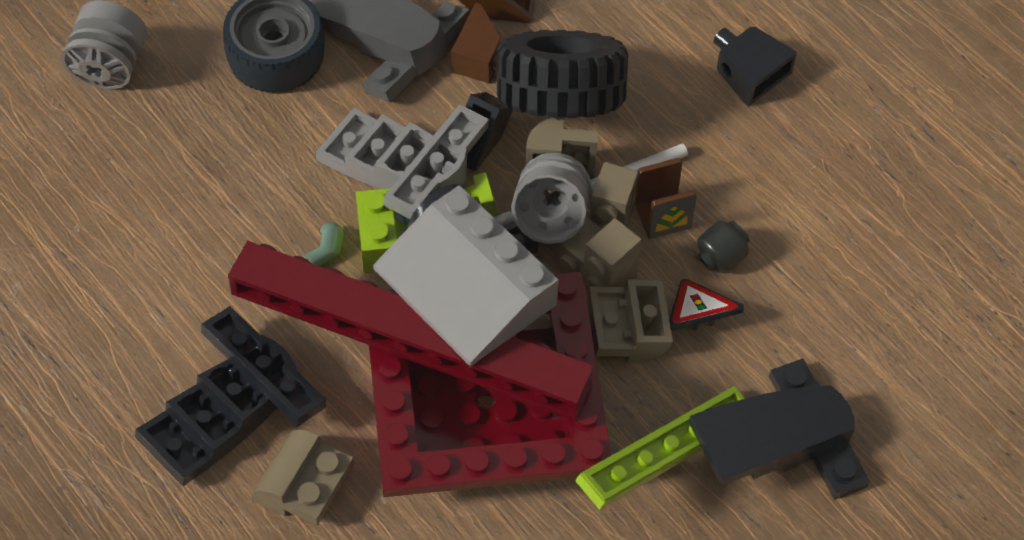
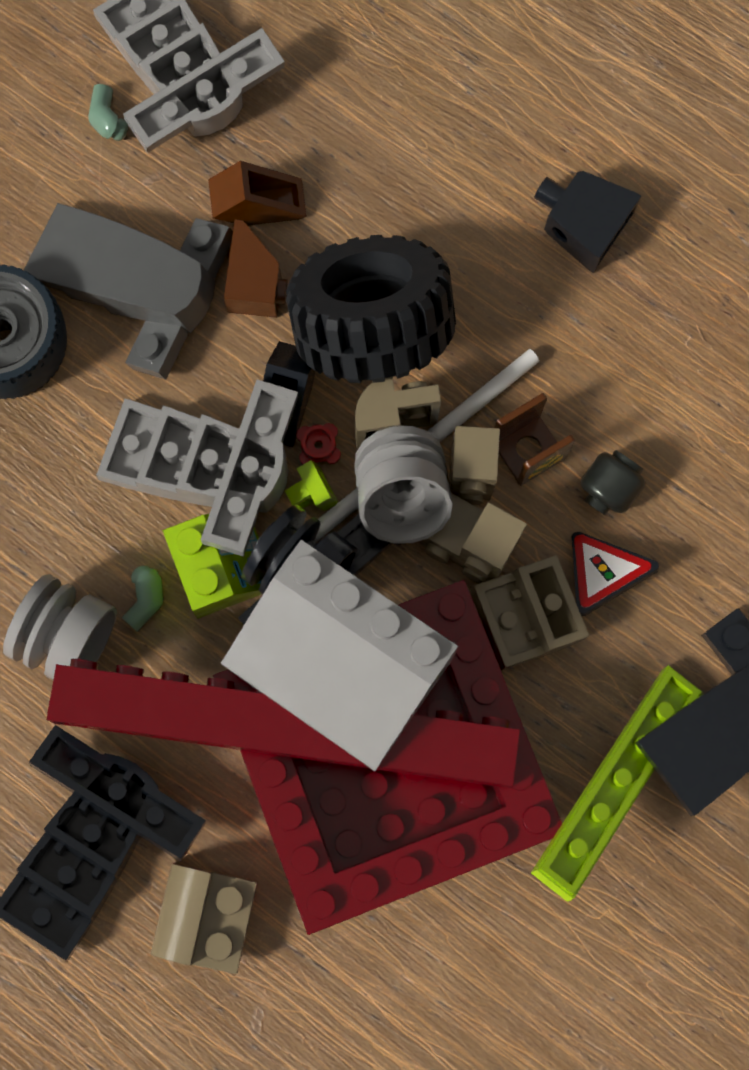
camera: 15 degrees left, 20 degrees up
(252, 222) = (56, 629): none -> light grey wheel
(498, 164) = (318, 433): none -> red plate

